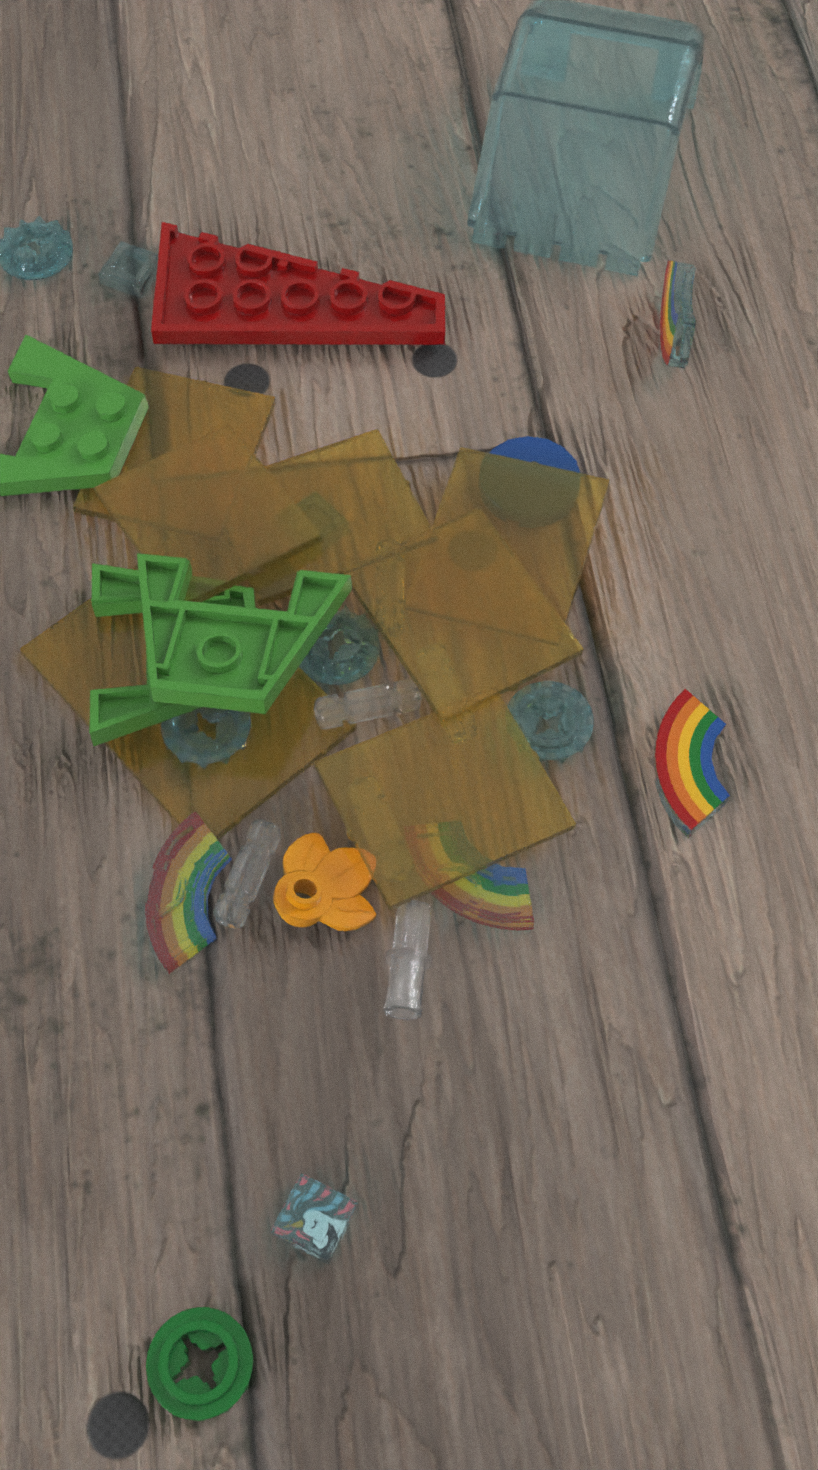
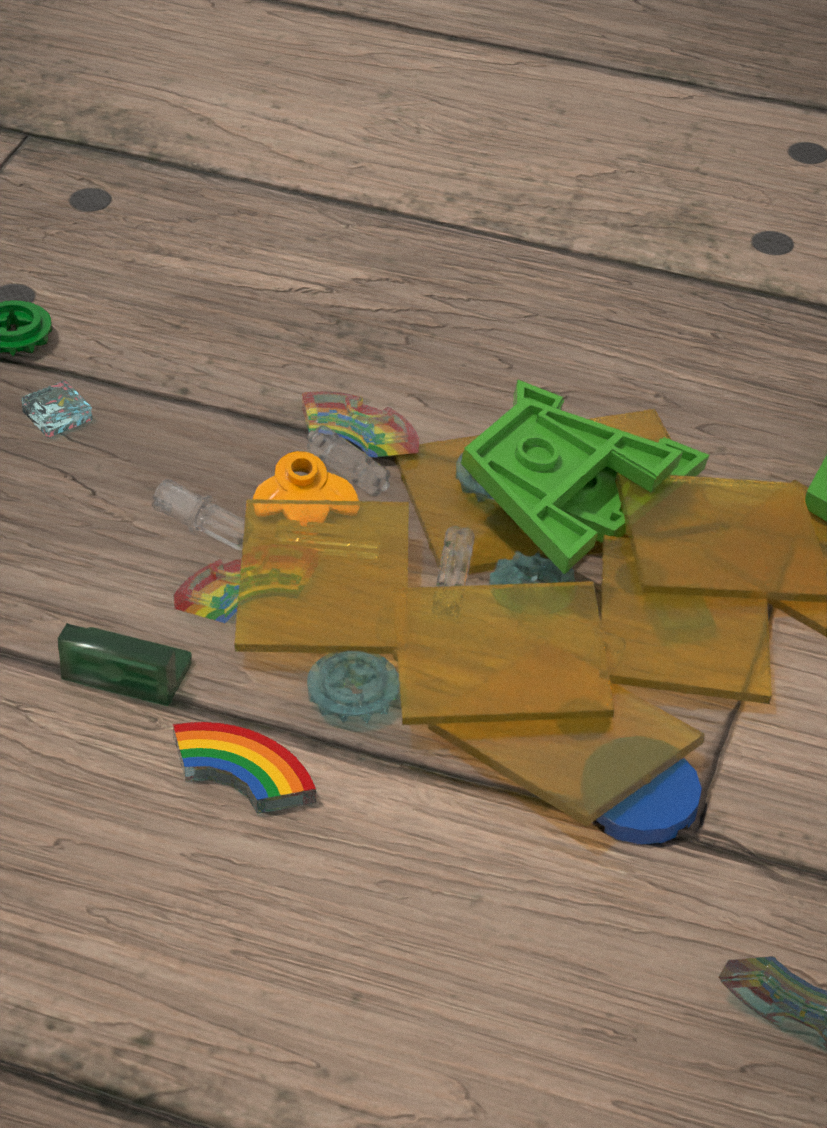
camera: 115 degrees right, 20 degrees down
(638, 918) = (122, 663): none -> clear green panel

